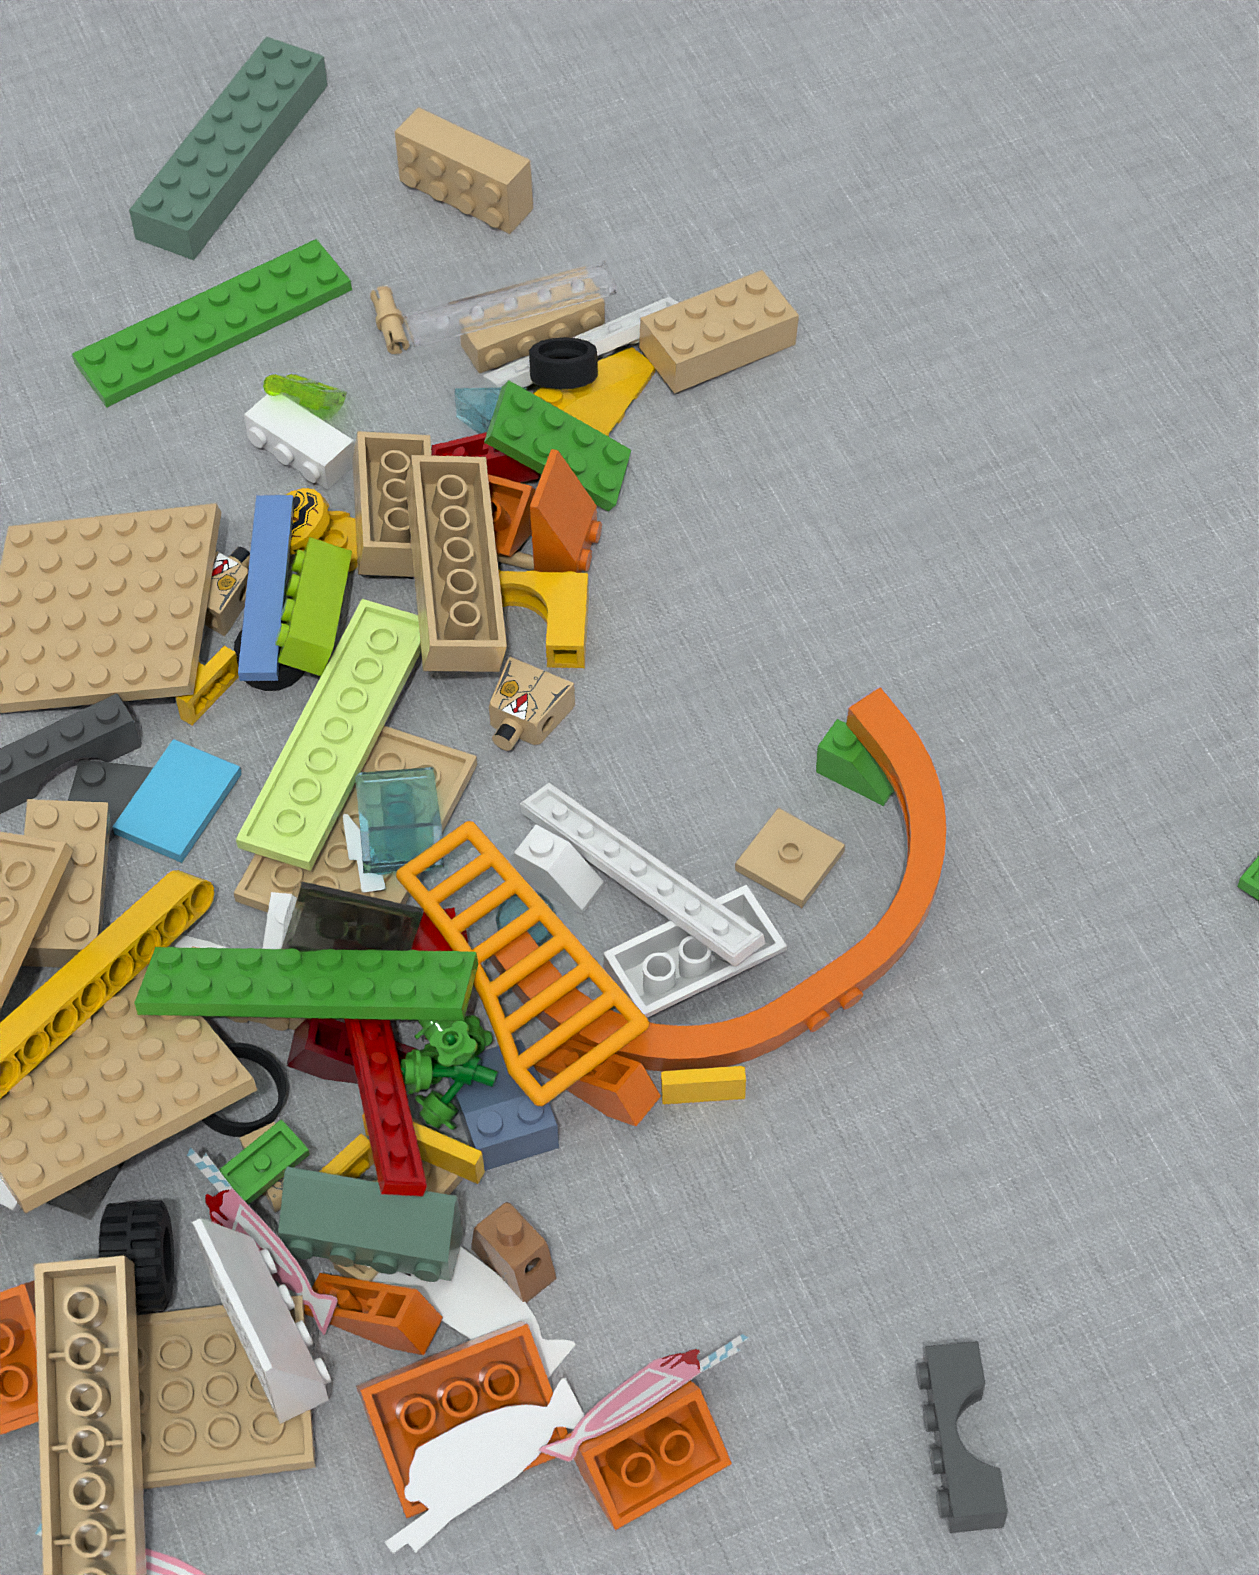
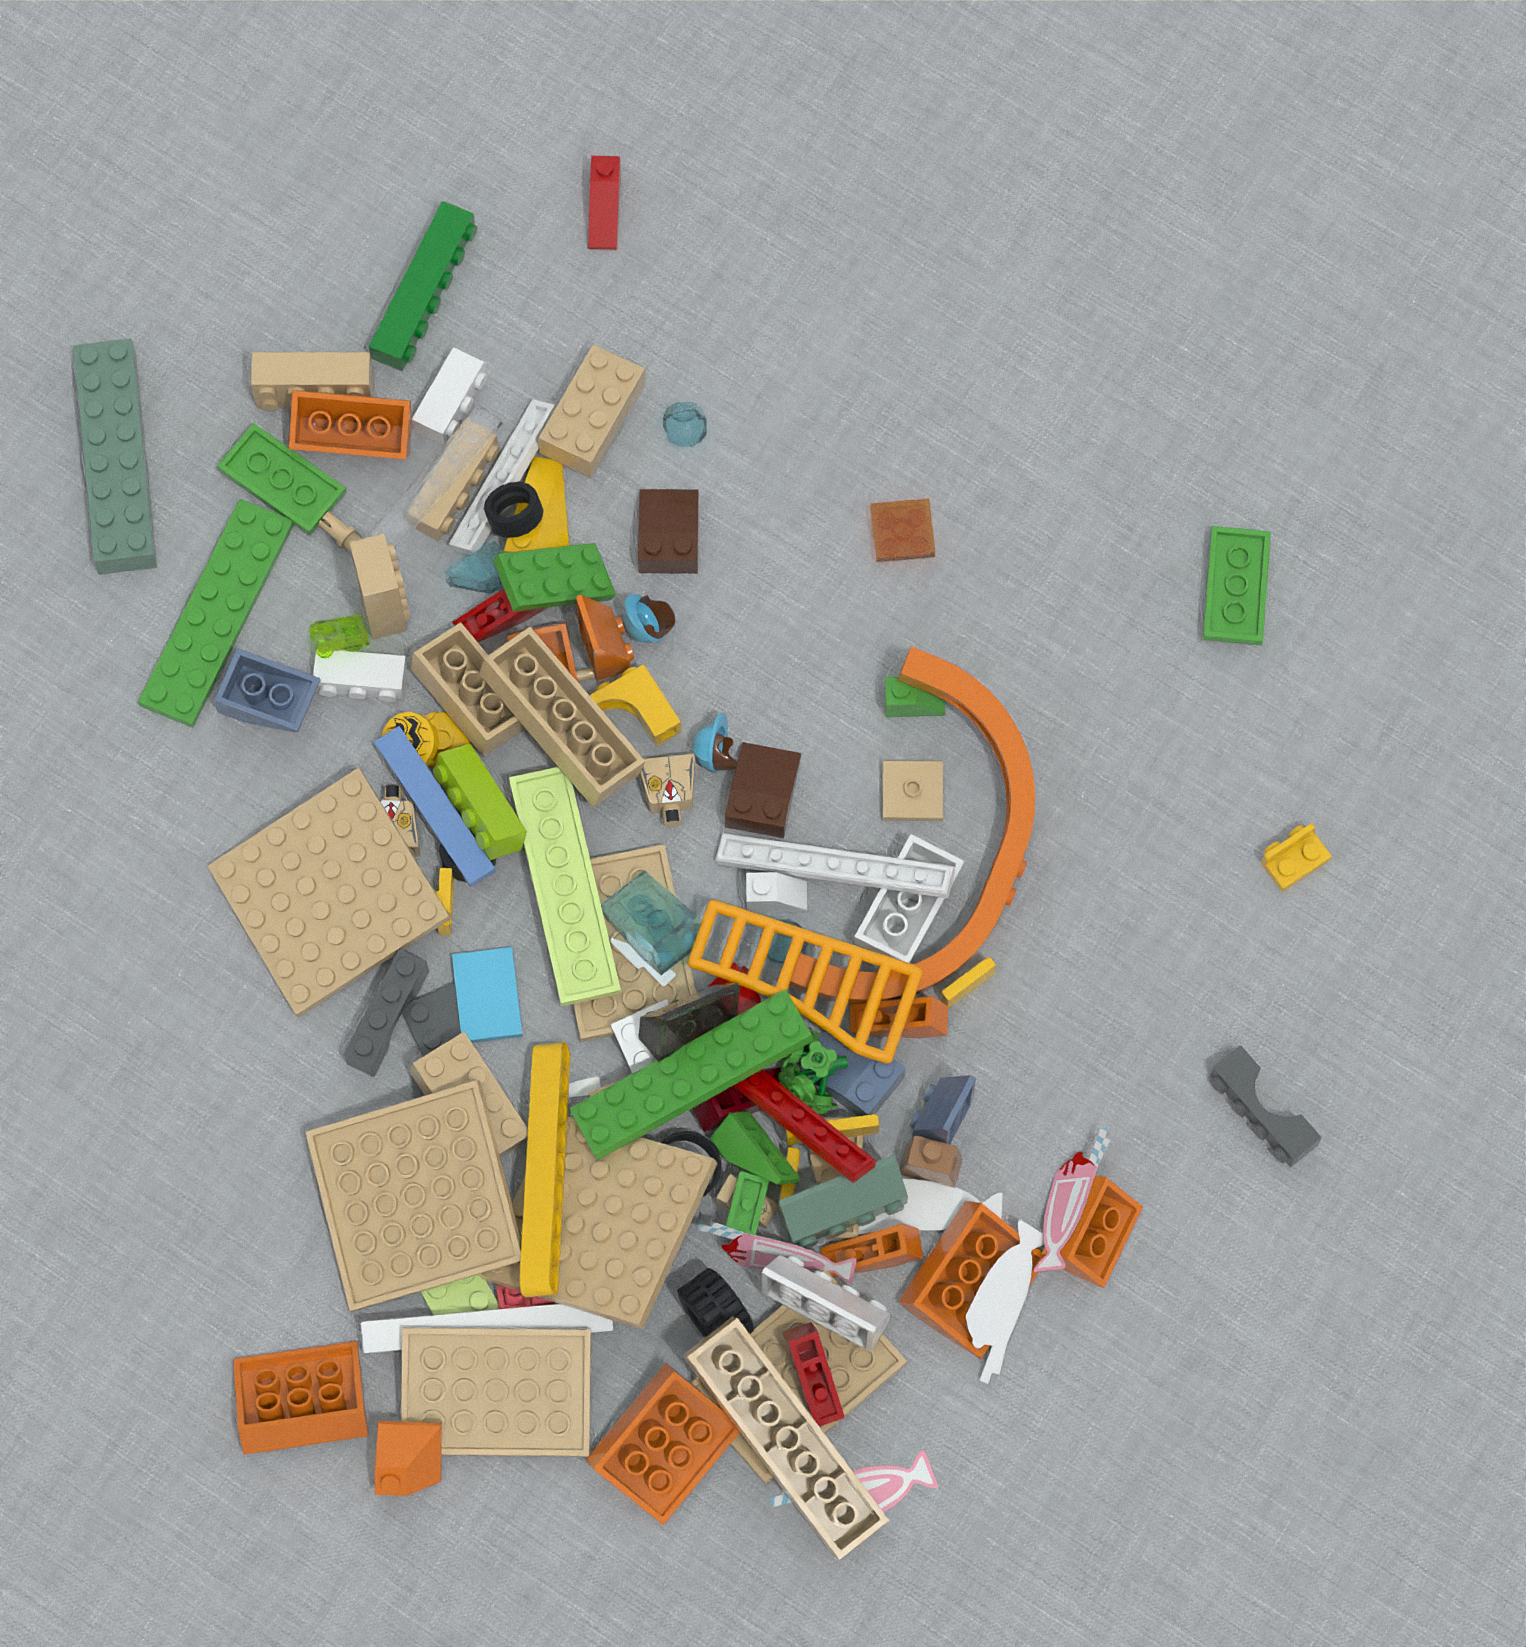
camera: 35 degrees left, 15 degrees up
(188, 397) = (265, 692): none -> sand blue slope
(189, 1400) = (813, 1373): none -> red slope
(318, 1109) = (748, 1146): none -> bright green slope
(369, 242) = (281, 478): none -> bright green plate
(369, 353) = (380, 585): none -> tan brick
(468, 220) = (350, 424): none -> orange slope
(571, 1205) = (945, 1108): none -> sand blue slope
(605, 239) = (449, 396): none -> white brick
(605, 688) = (713, 745): none -> medium azure piece
(621, 765) = (762, 790): none -> reddish brown slope
(625, 537) = (647, 619): none -> piece
(636, 153) = (422, 286): none -> green brick
(712, 478) = (668, 531): none -> reddish brown slope
(805, 389) = (685, 424): none -> clear light blue hair
(875, 169) = (604, 202): none -> red slope
(966, 602) = (902, 530): none -> clear orange plate
(1195, 1174) = (1295, 857): none -> yellow bracket

